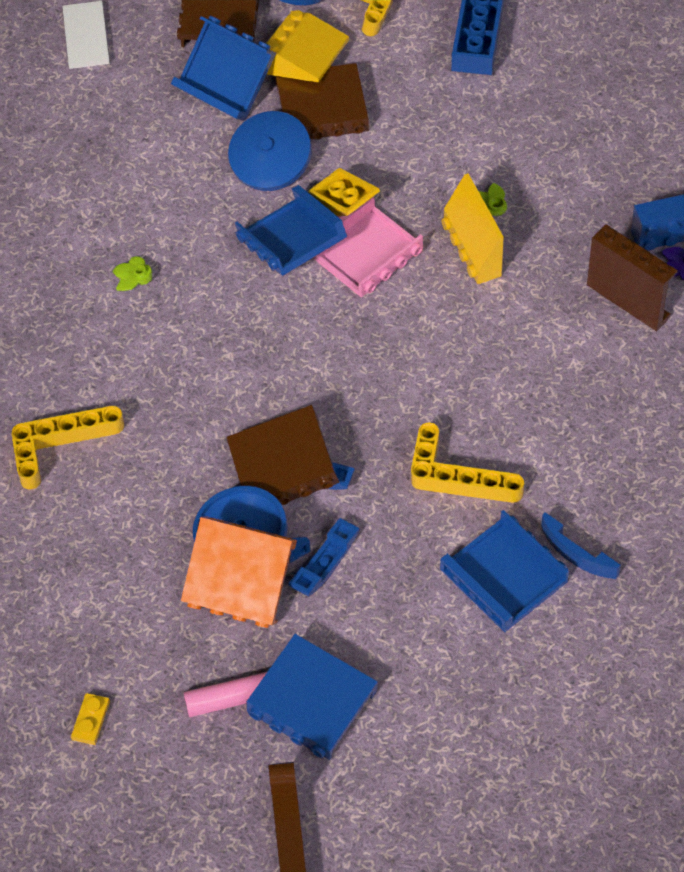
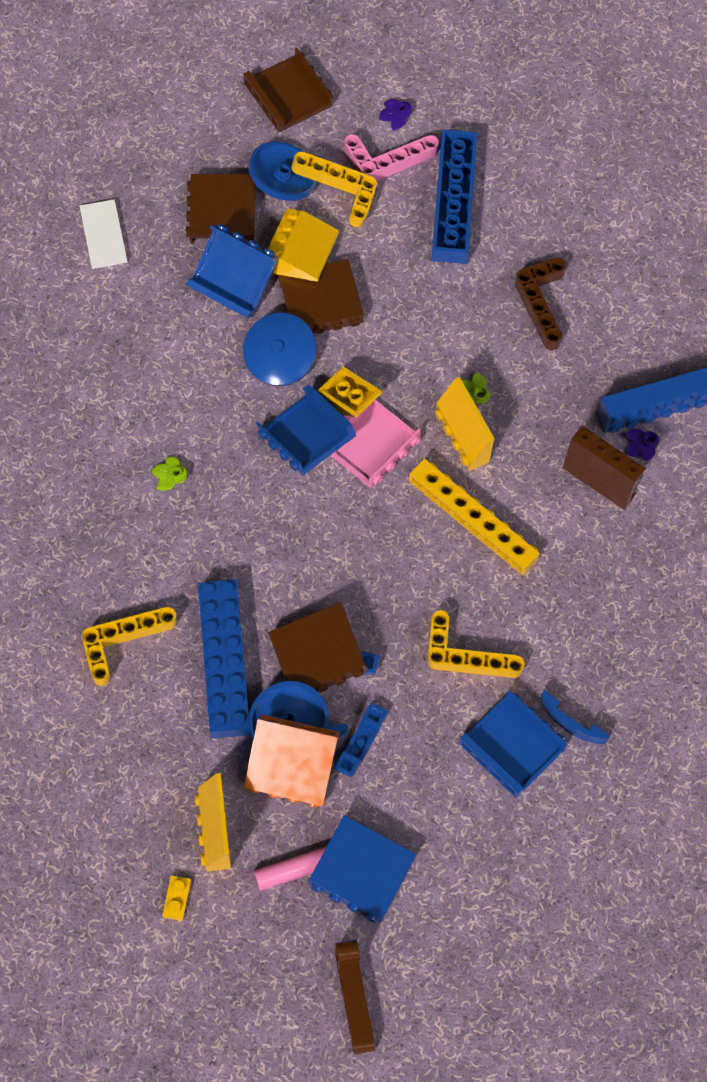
camera: 10 degrees left, 10 degrees up
(141, 637) = (214, 825): none -> yellow slope
(172, 465) = (223, 659): none -> blue brick
(479, 329) = (462, 514): none -> yellow brick
(561, 95) = (538, 301): none -> reddish brown beam

